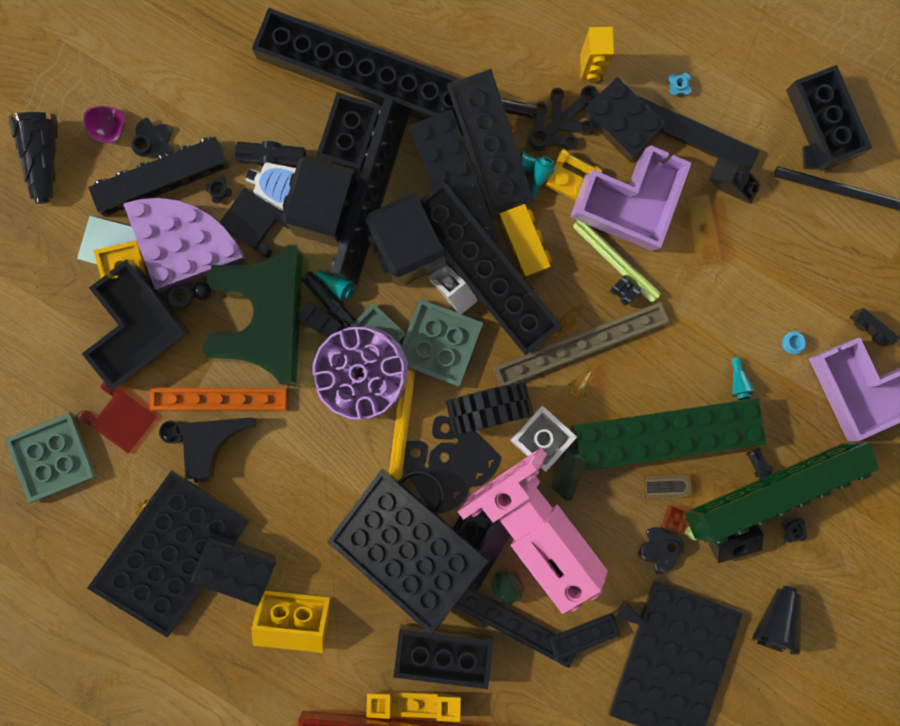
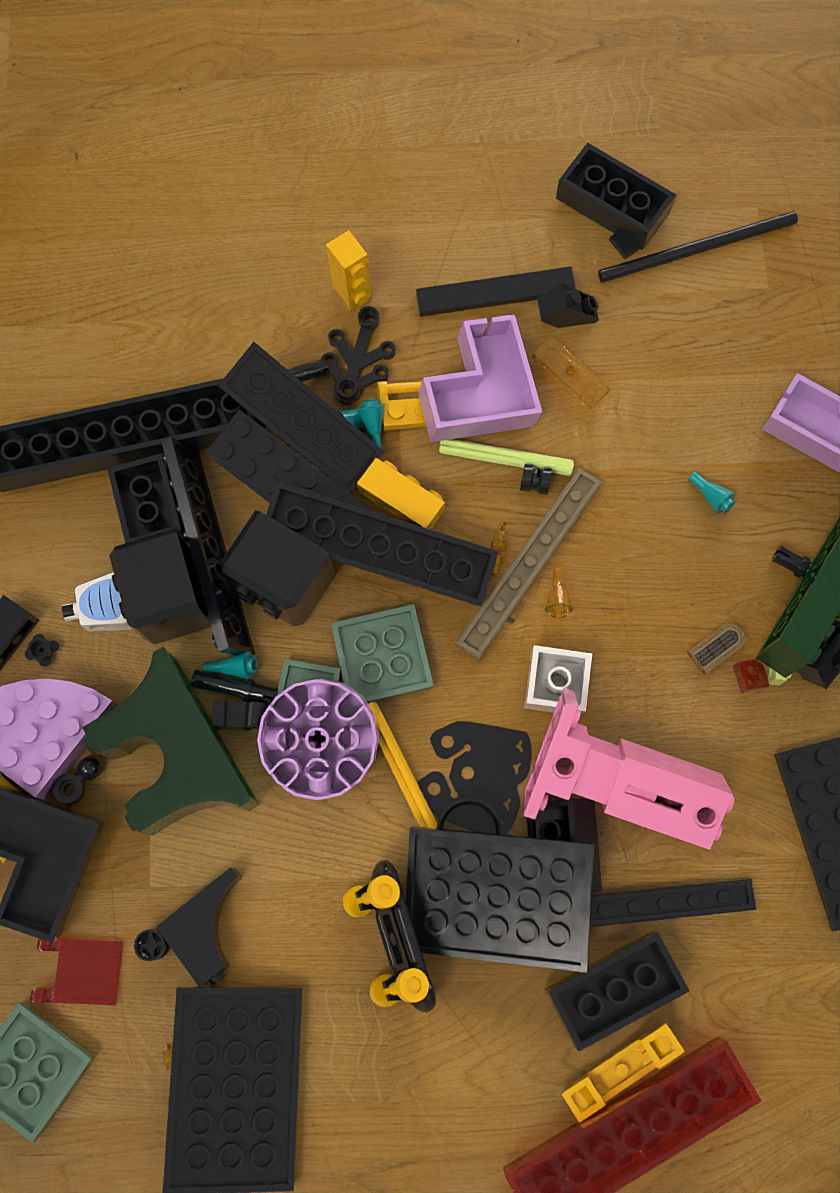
camera: 30 degrees left, 10 degrees down
(218, 399) = (180, 875): orange tile -> none
(233, 569) = (319, 1053): black brick -> none
(251, 219) = (97, 657): black flag -> none
(268, 152) = (70, 576): black piece -> none
(291, 621) = (422, 1071): yellow slope -> none
(336, 500) = (399, 939): none -> piece
(453, 289) = (360, 590): white slope -> none
(489, 408) = (481, 683): black tyre -> none
(507, 586) = (630, 865): clear green head -> none
(569, 474) = (610, 699): tile -> none
(583, 636) = (747, 864): black tile -> none
(623, 119) = (419, 317): black brick -> none
(627, 613) = (774, 805): black slope -> none
(657, 549) = (755, 719): black plate -> none
(670, 434) = (680, 593): dark green brick -> none
(678, 90) = (453, 260): medium azure plate -> none
(793, 342) = (737, 423): medium azure plate -> none
(880, 333) = (802, 358): black plate -> none

